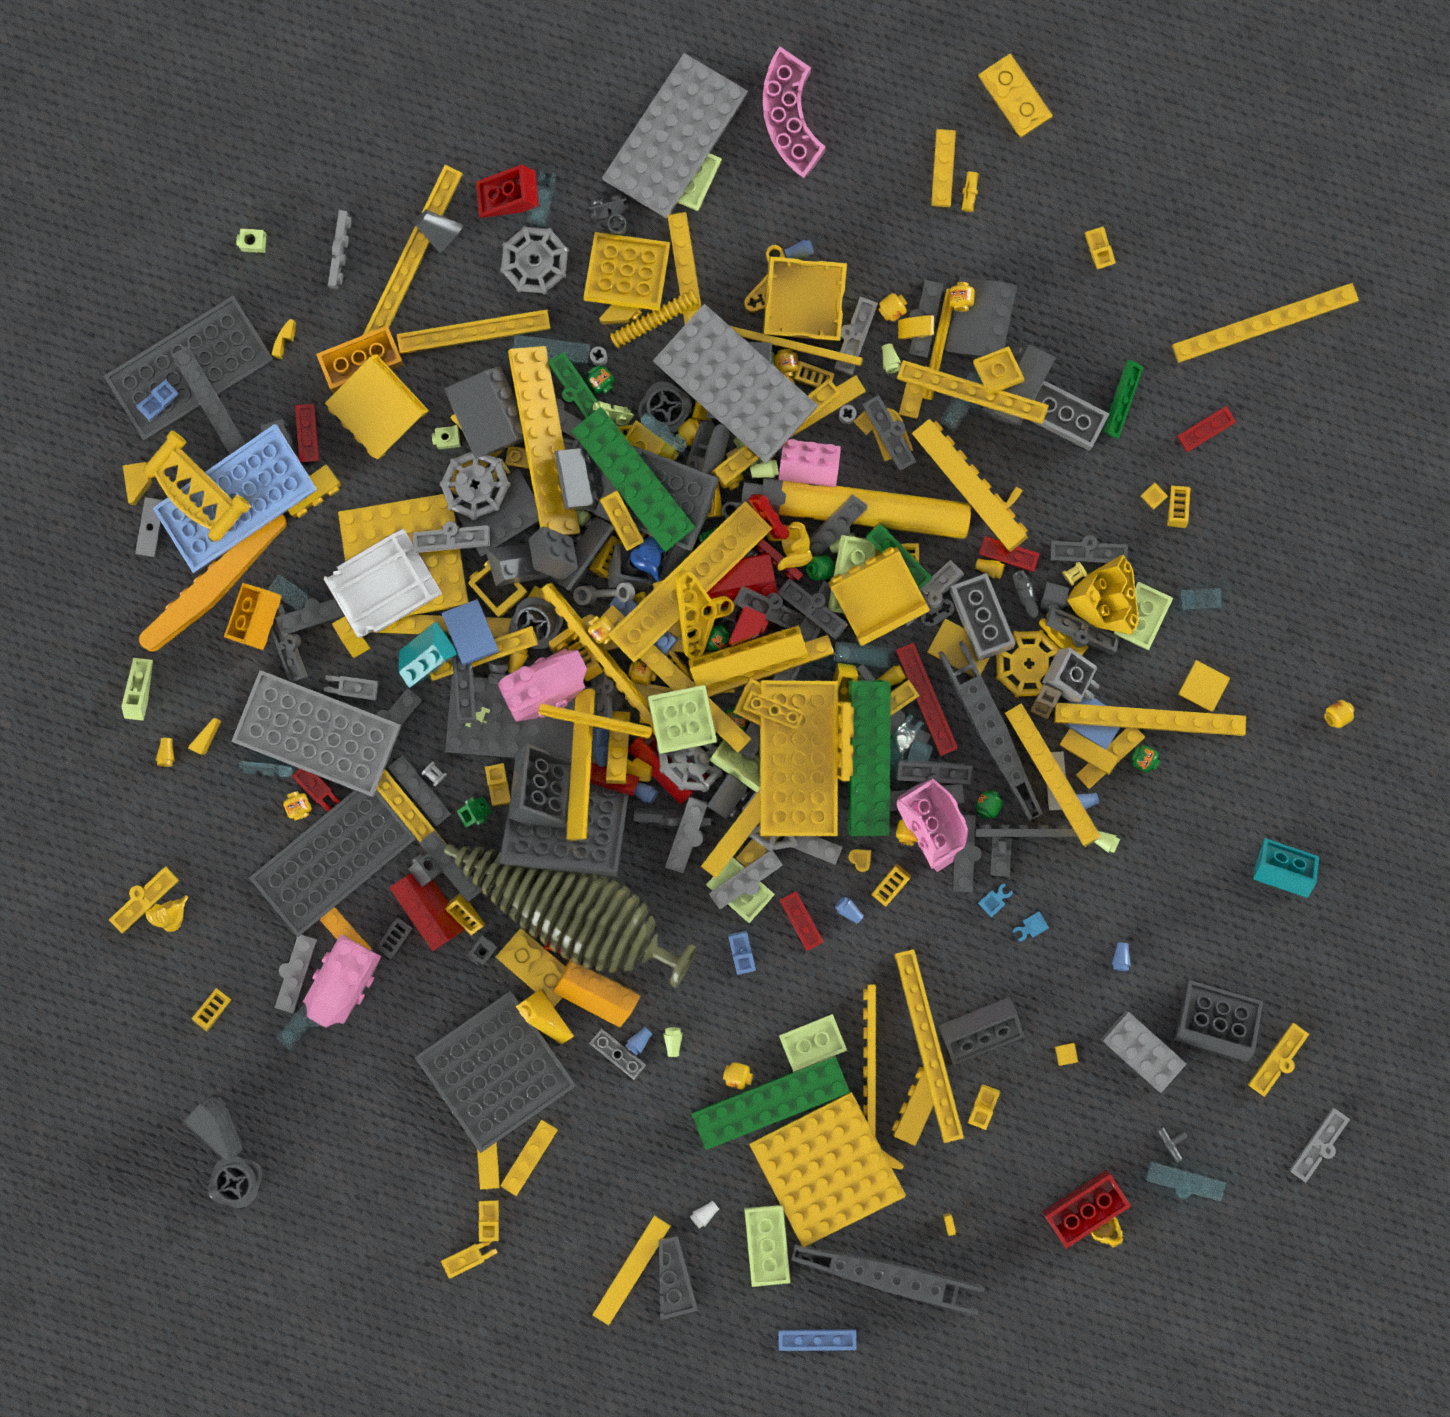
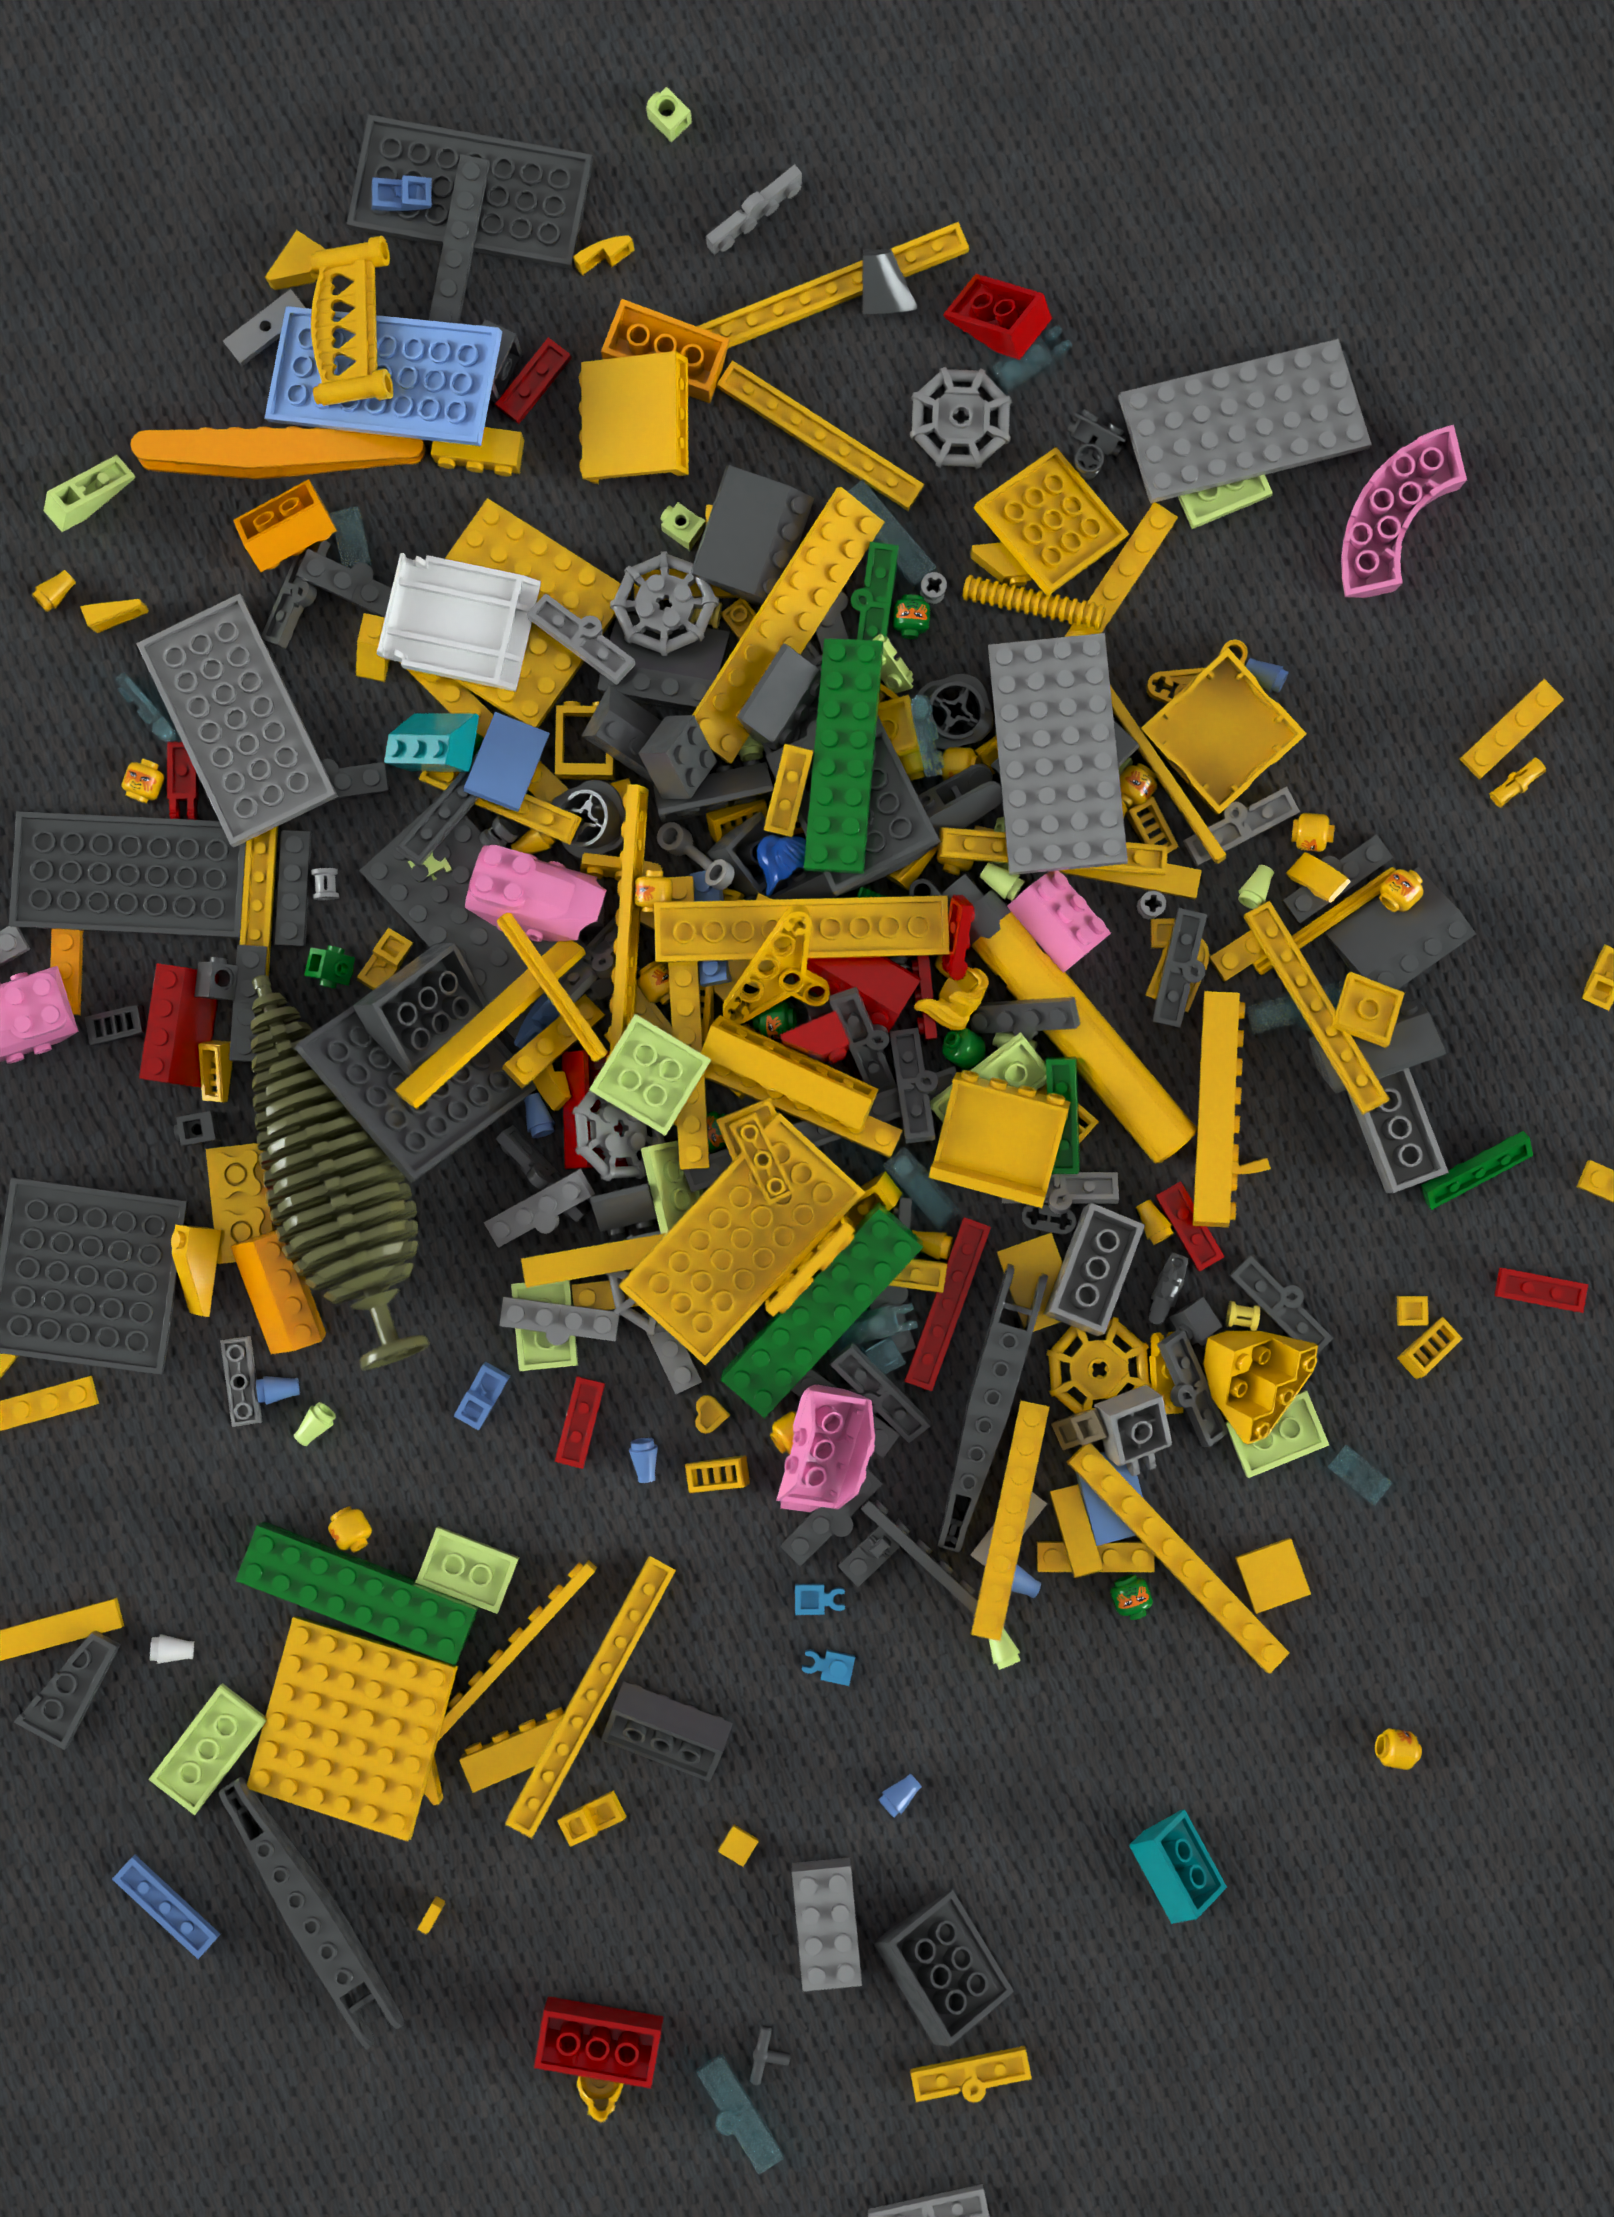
camera: 45 degrees right, 0 degrees up
(354, 687) = (326, 708): light grey hinge -> none
(593, 667) = (605, 927): yellow slope -> none
(598, 777) = (500, 1051): red plate -> none
(988, 804) = (908, 1485): green head -> none

